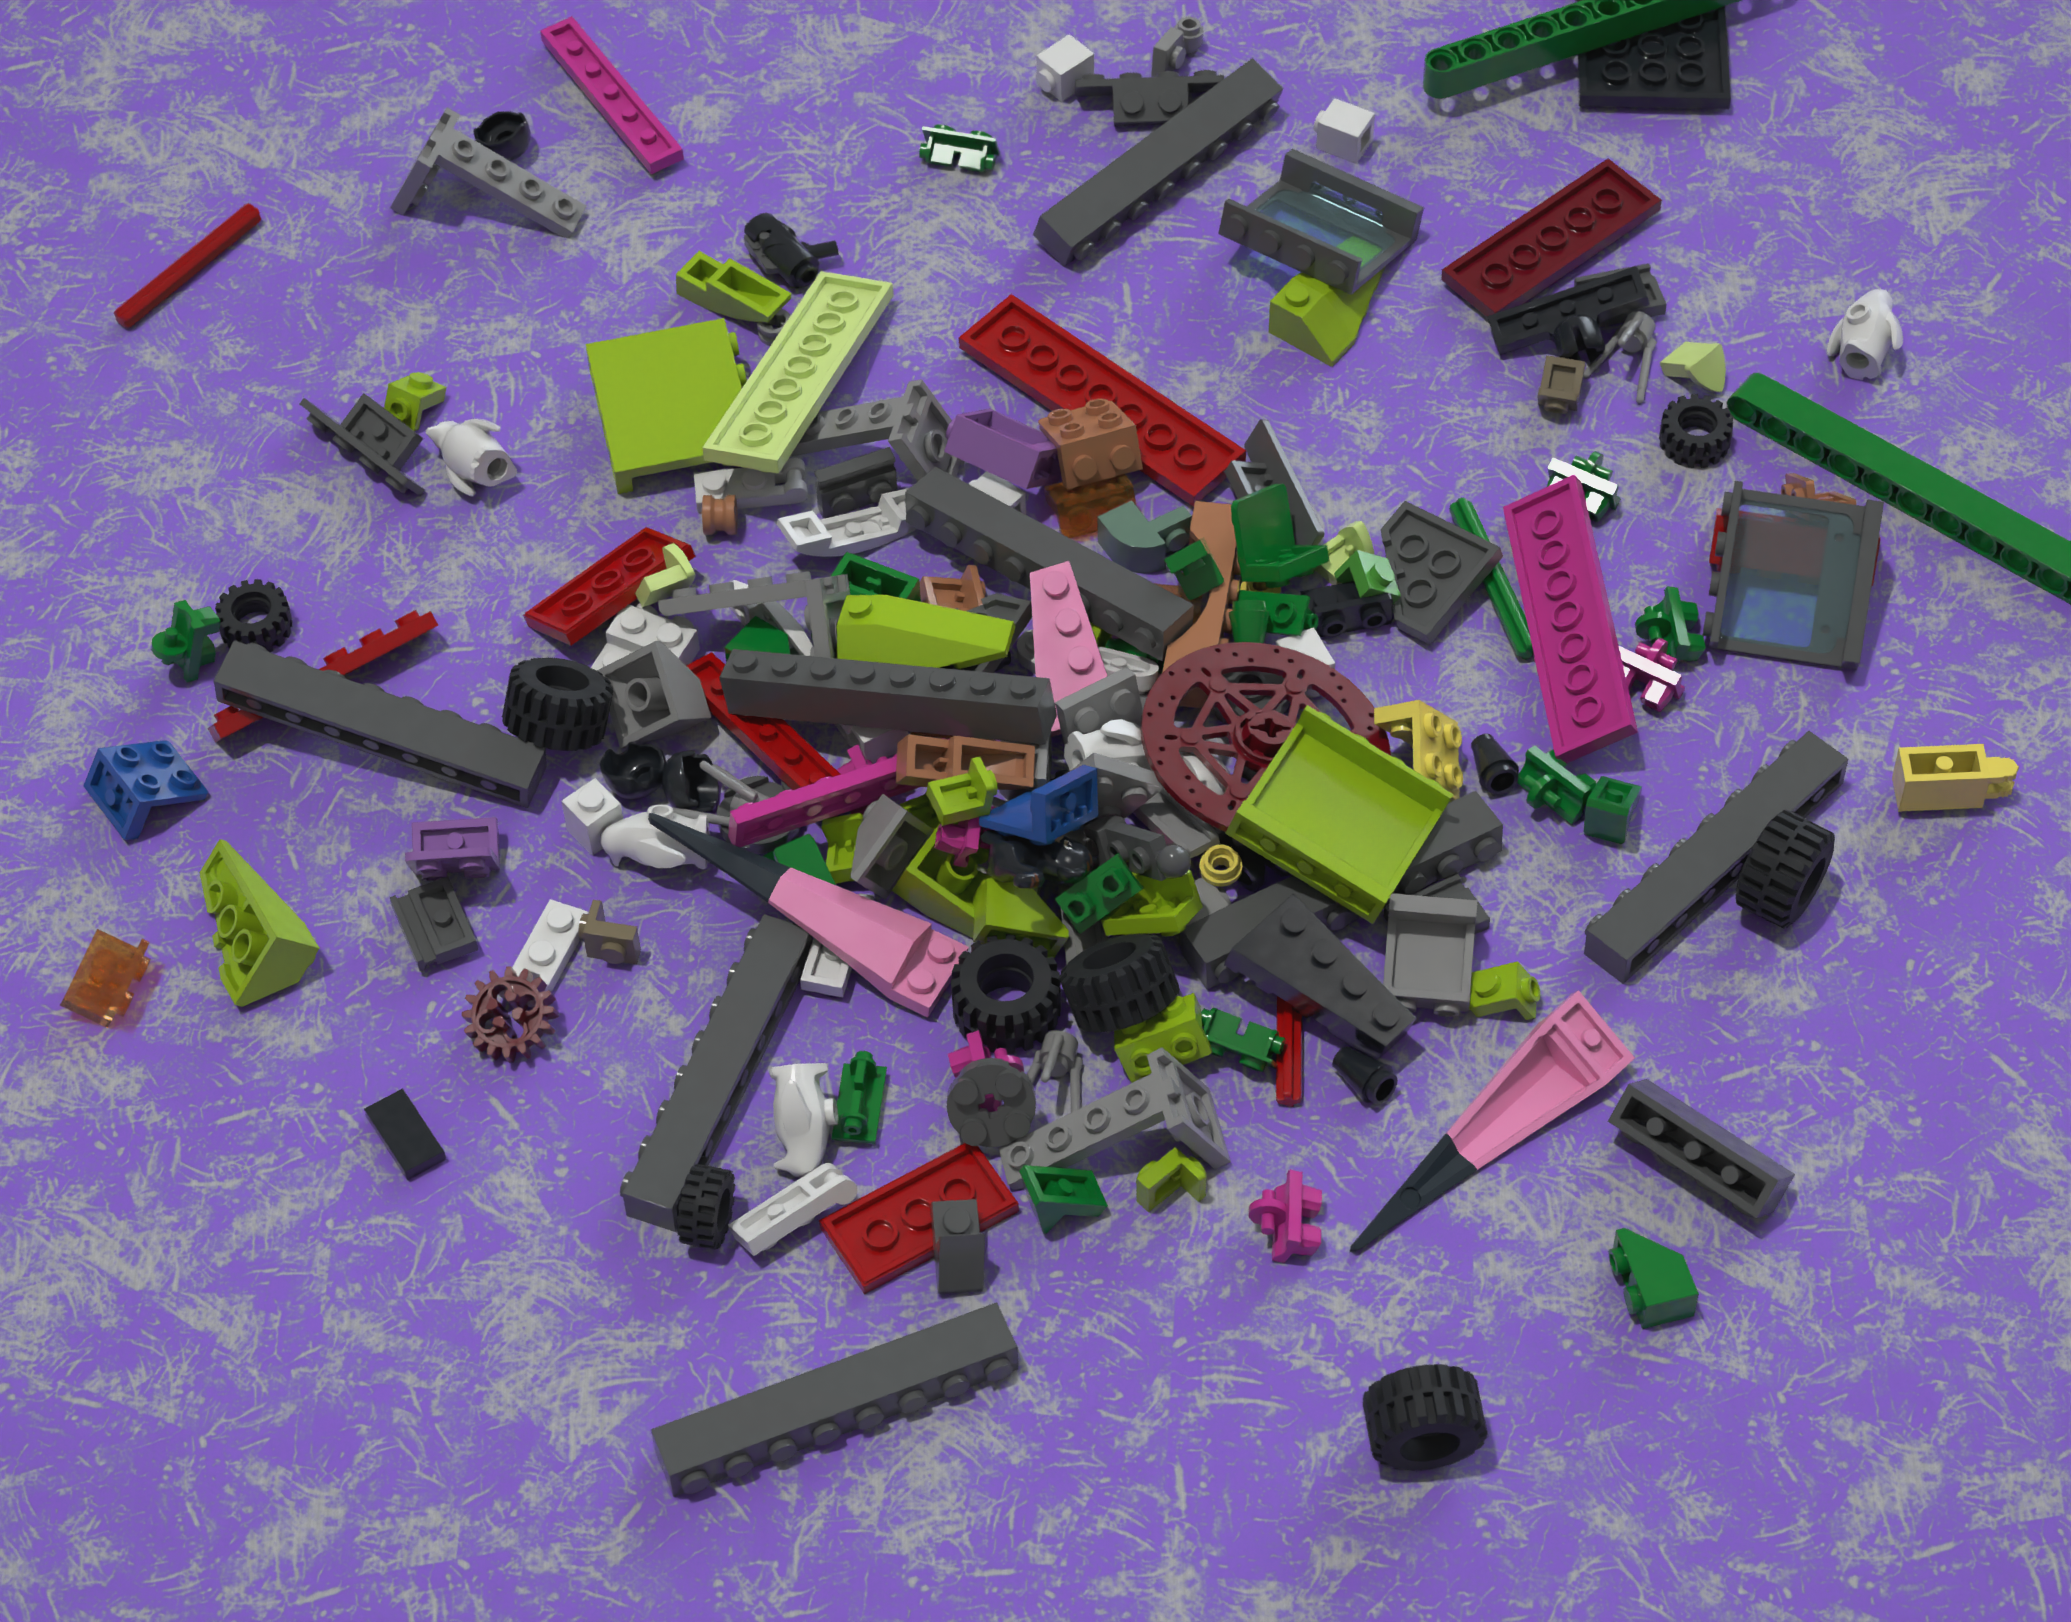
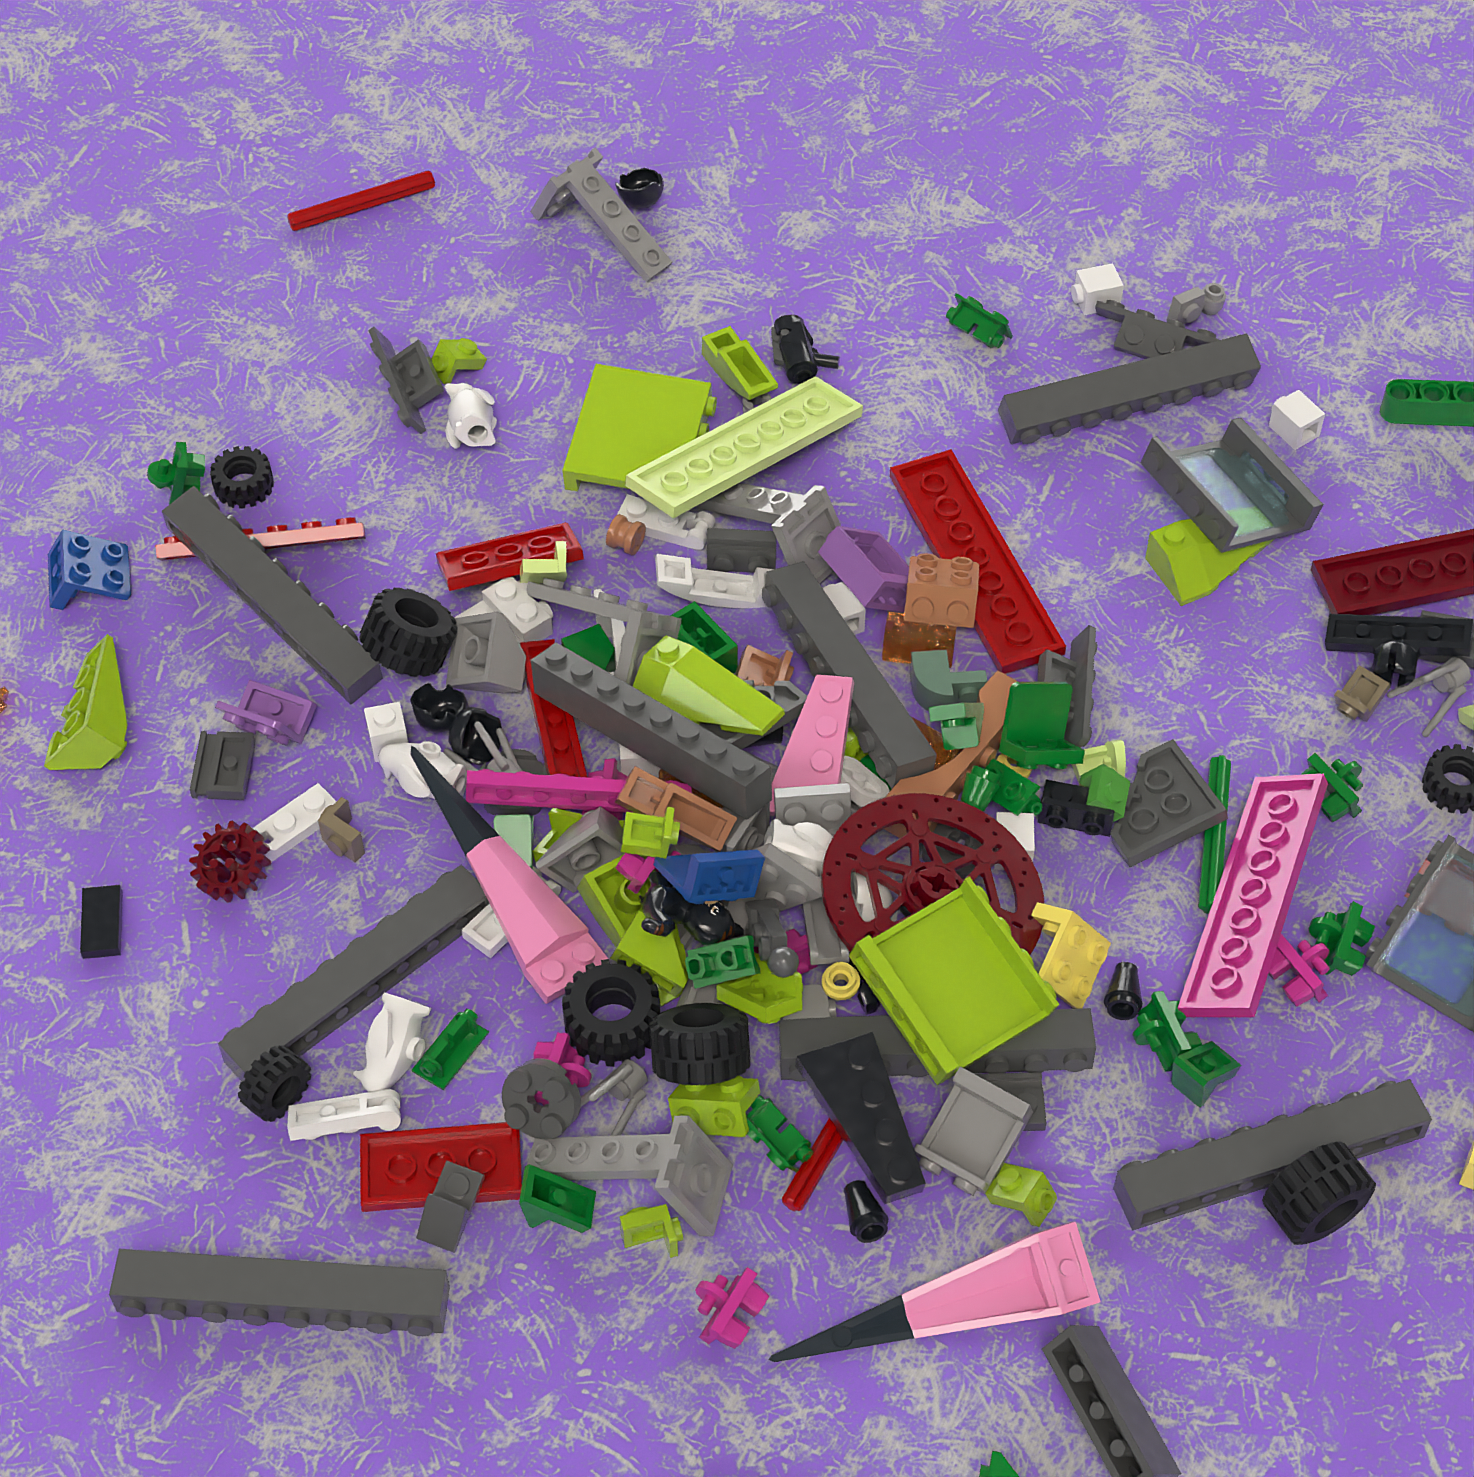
camera: 25 degrees right, 0 degrees up
(612, 95) = (740, 187): dark pink plate -> none

